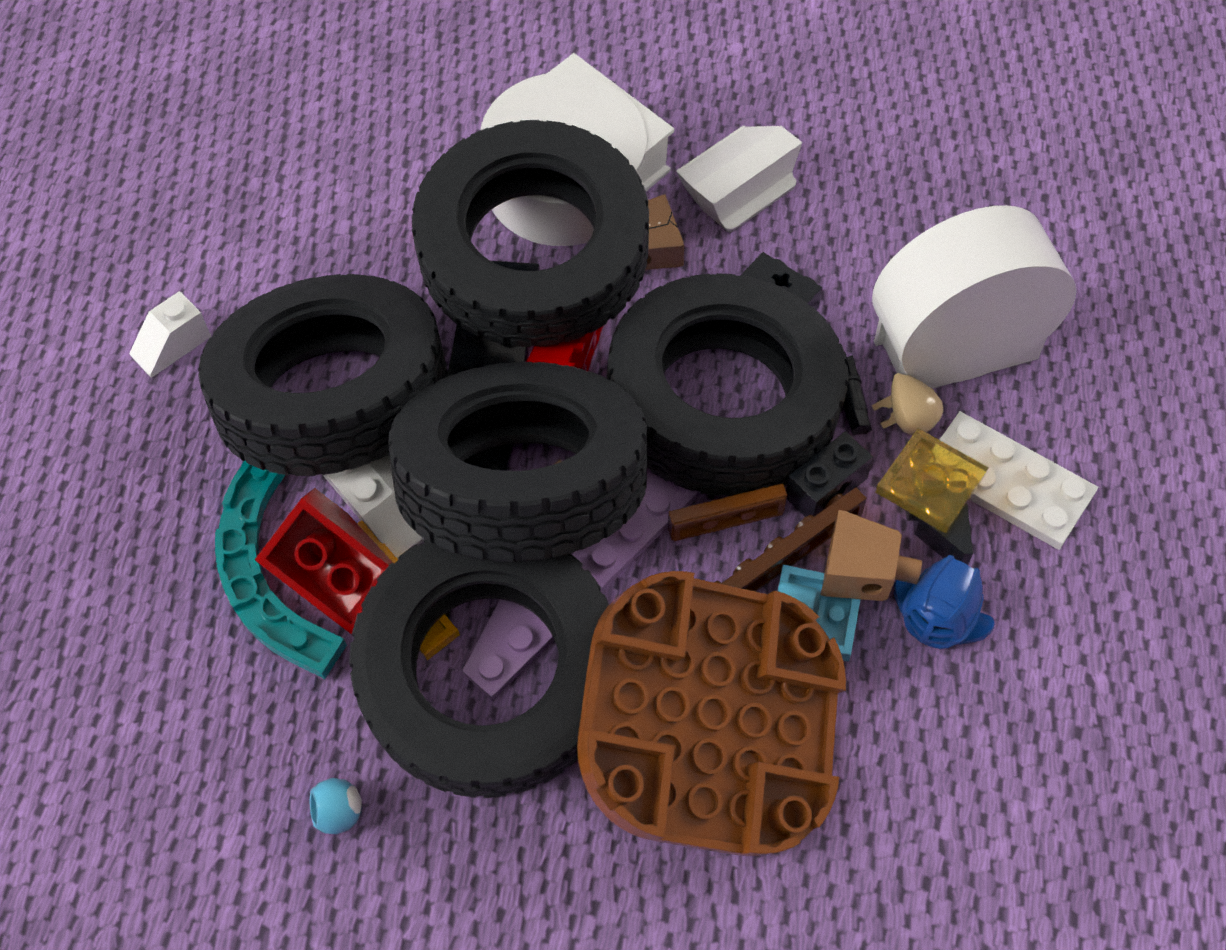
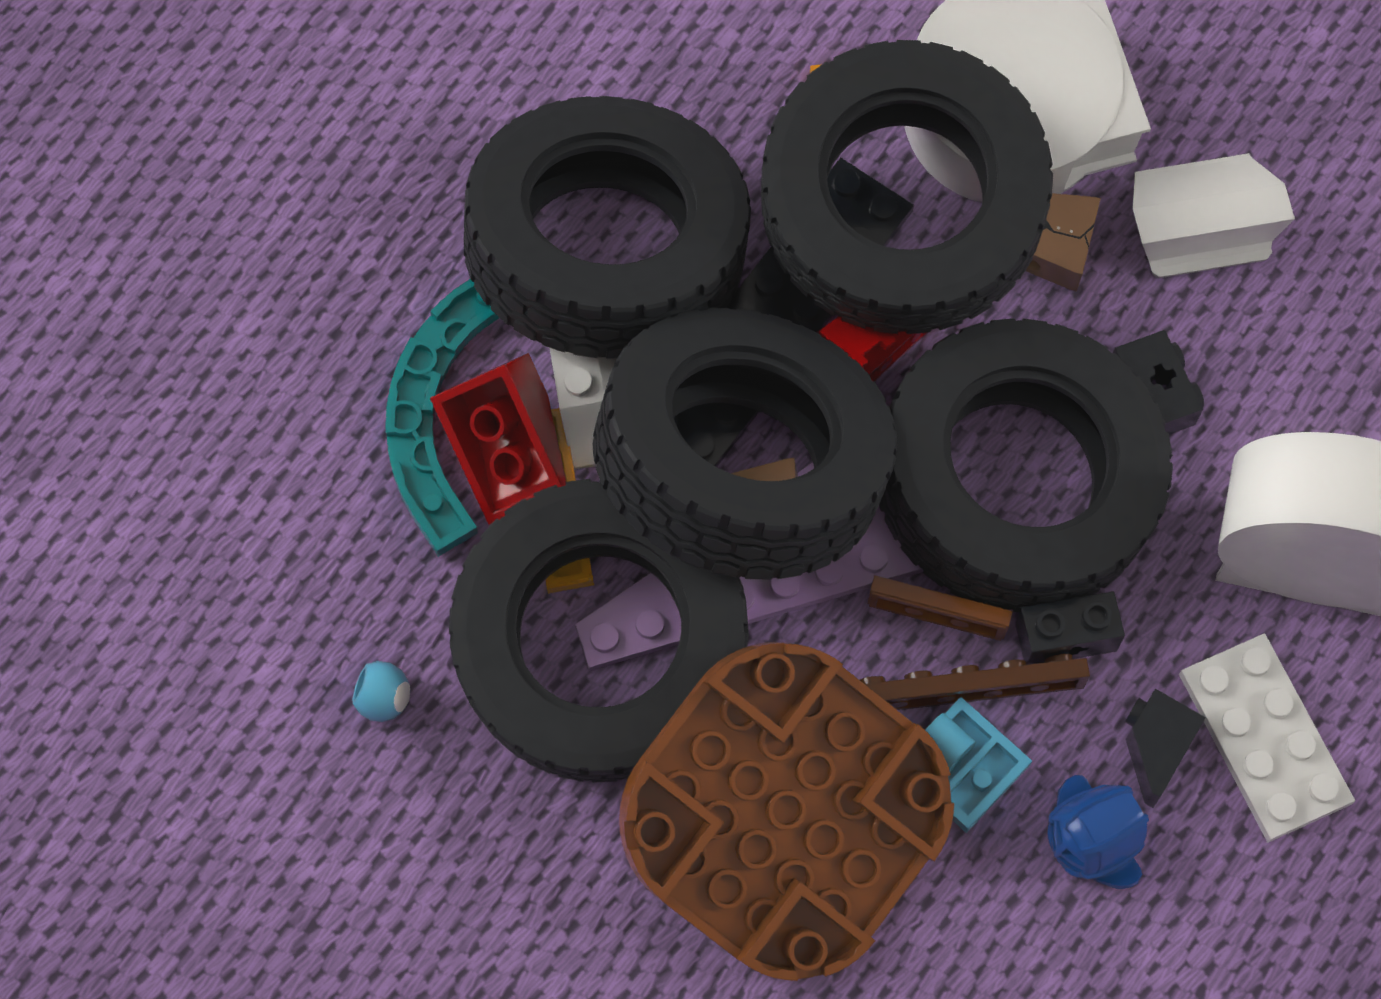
camera: 25 degrees right, 10 degrees up
(169, 334) = (471, 80): white slope -> none
(854, 402) = (1161, 549): black piece -> none
(865, 560) = (1042, 741): medium nougat torso -> none
(913, 405) = (1212, 600): tan piece -> none
(931, 480) = (1166, 696): clear yellow plate -> none

